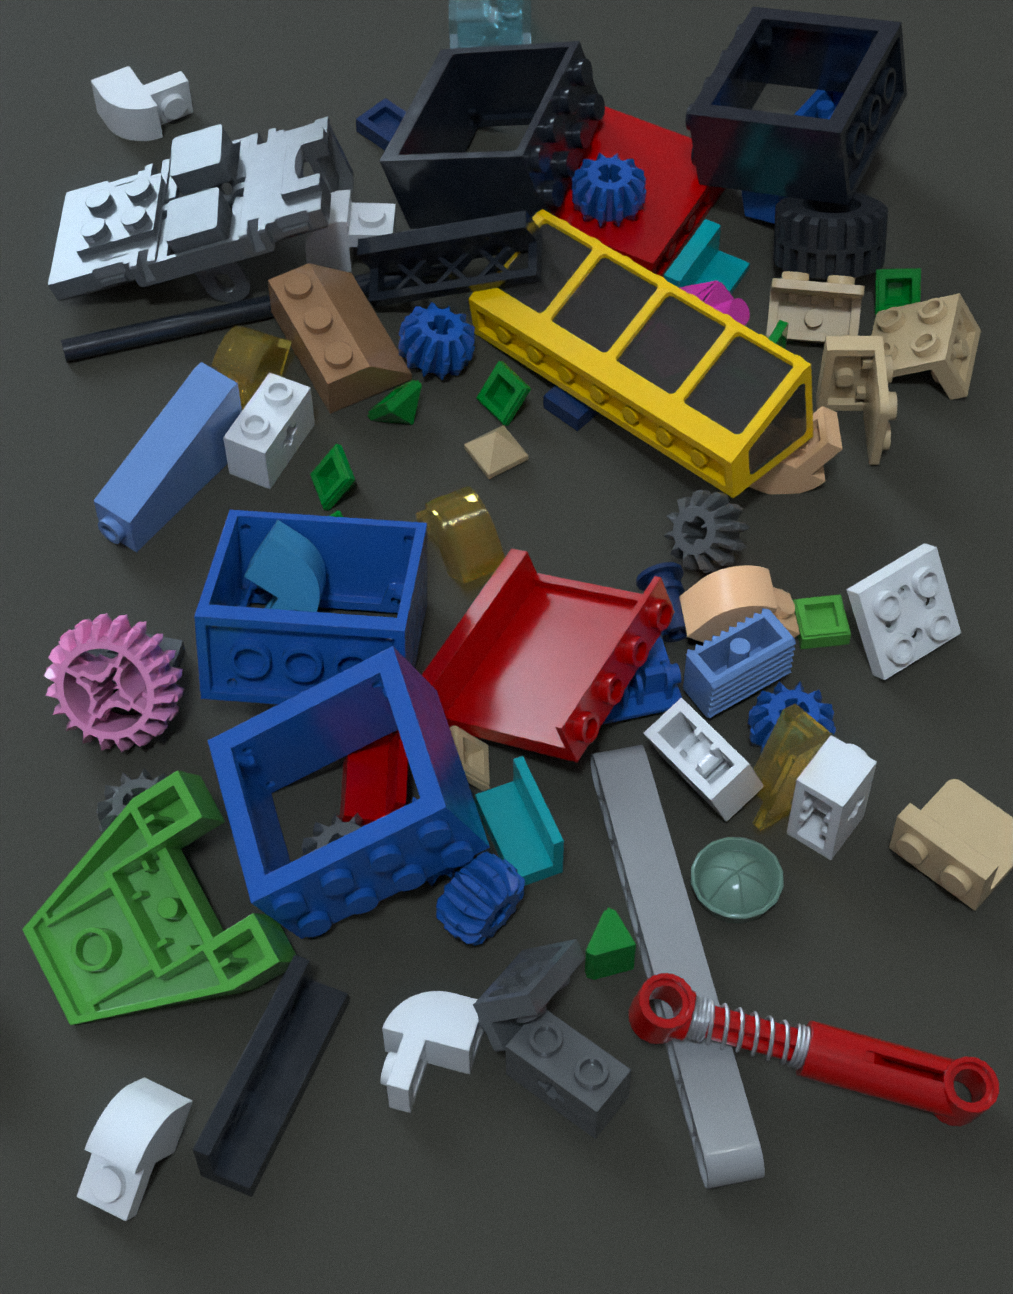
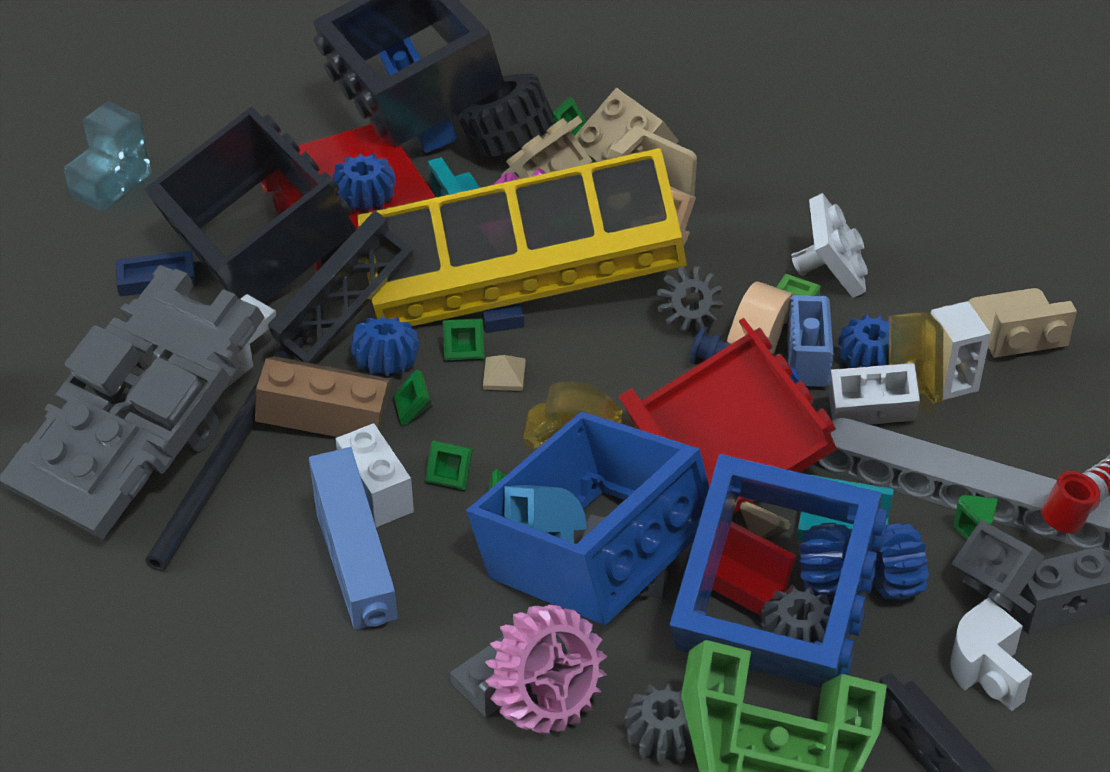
camera: 55 degrees left, 10 degrees down
(249, 357) = (292, 449): clear yellow brick -> none
(736, 879) = (970, 431): sand green hat -> none

